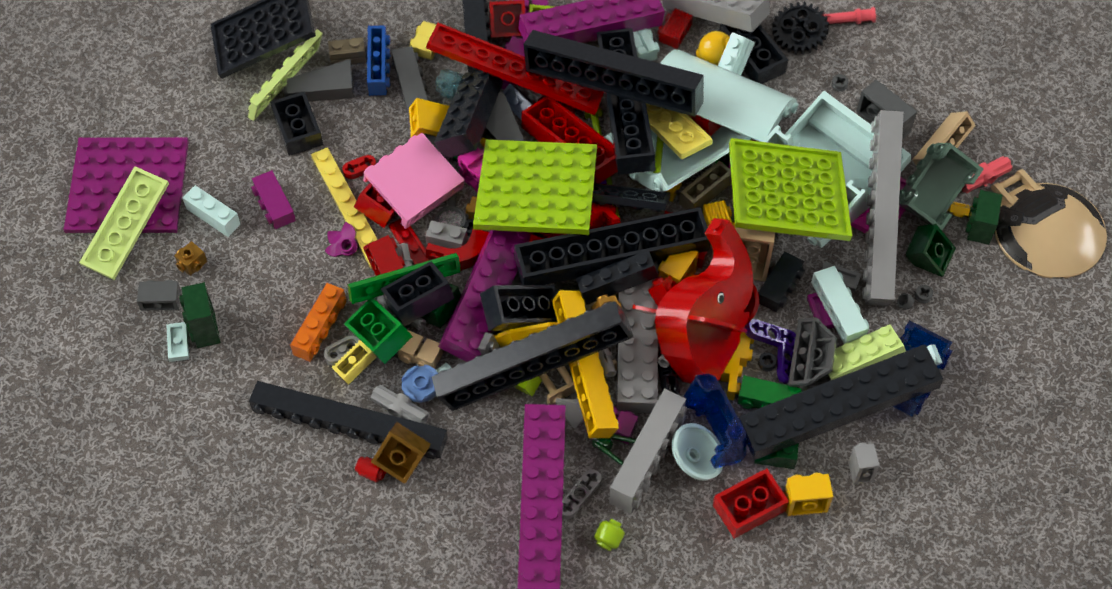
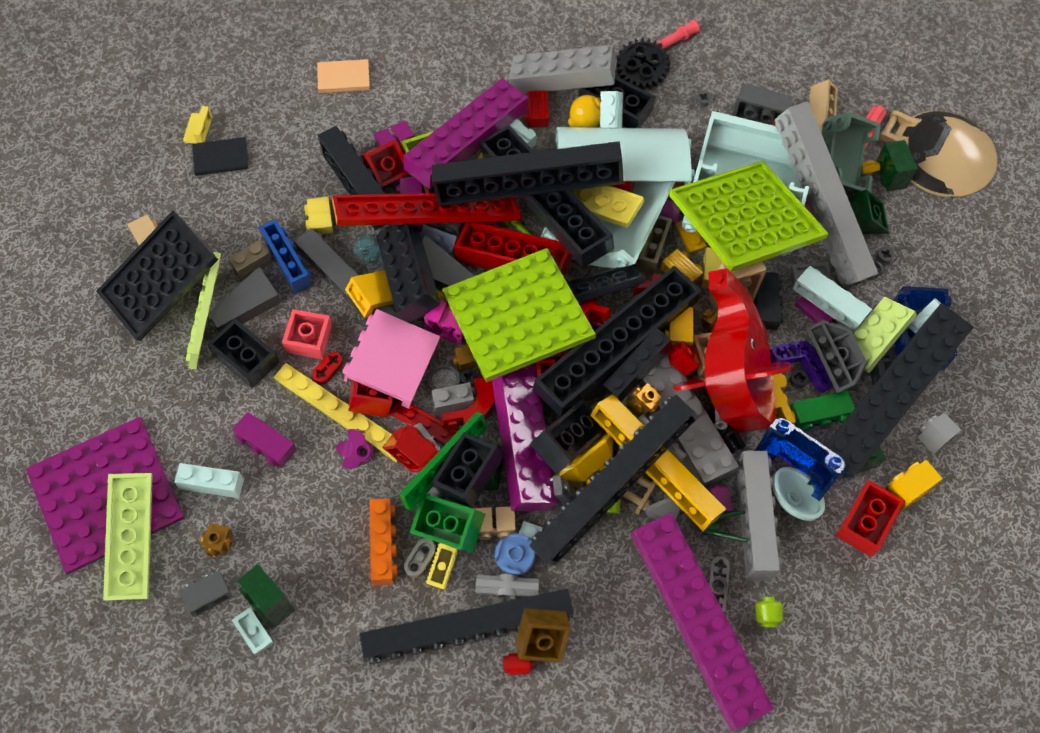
camera: 30 degrees left, 5 degrees up
(357, 131) = (307, 334): none -> coral brick

